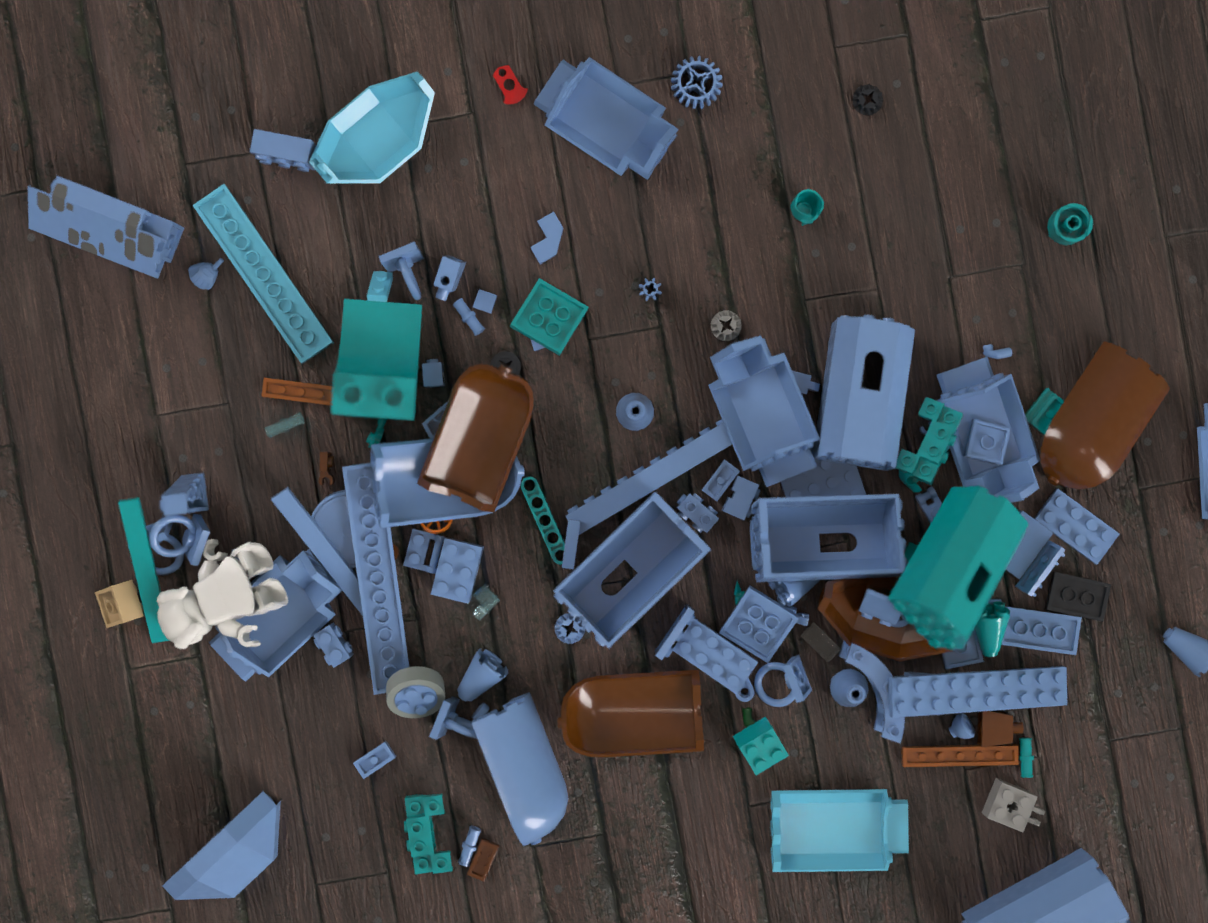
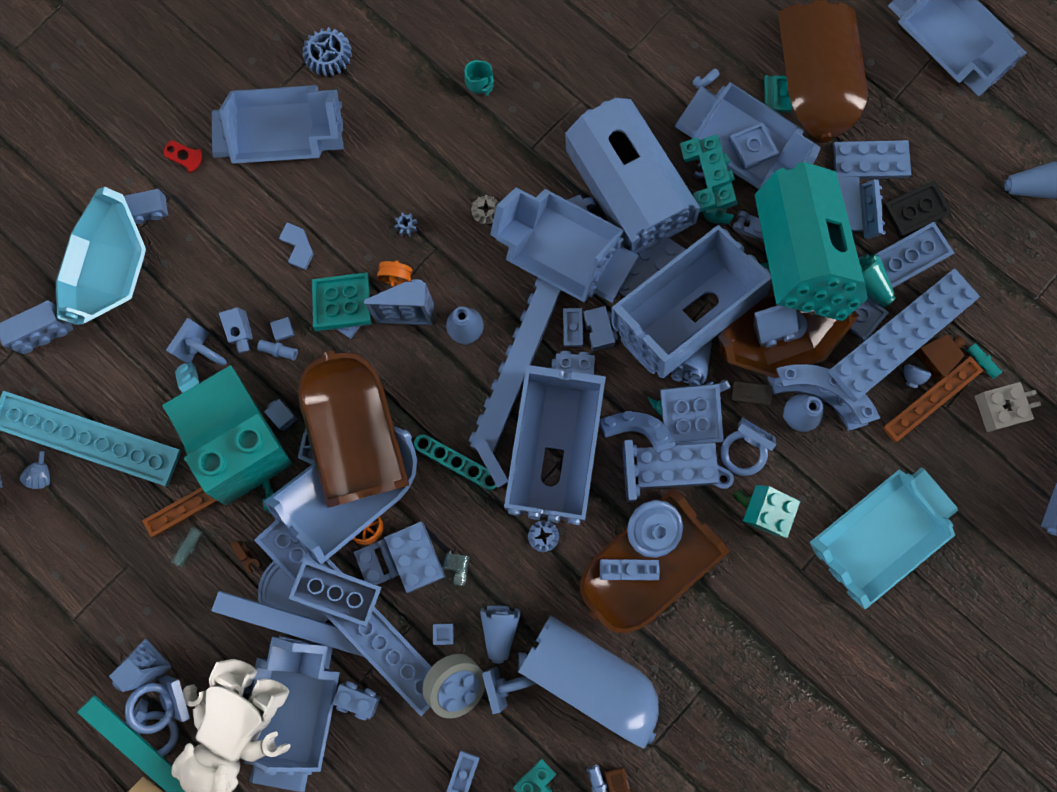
camera: 30 degrees left, 10 degrees down
(375, 556) = (334, 593): none -> medium blue brick
(436, 644) = (443, 634): none -> medium blue plate
(448, 109) = (147, 205): none -> medium blue brick
(599, 365) = (403, 304): none -> medium blue slope
(609, 326) = (394, 272): none -> orange wheel
(616, 706) = (629, 569): none -> medium blue plate
(660, 690) = (655, 528): none -> medium blue piece
(713, 598) = (638, 422): none -> medium blue plate

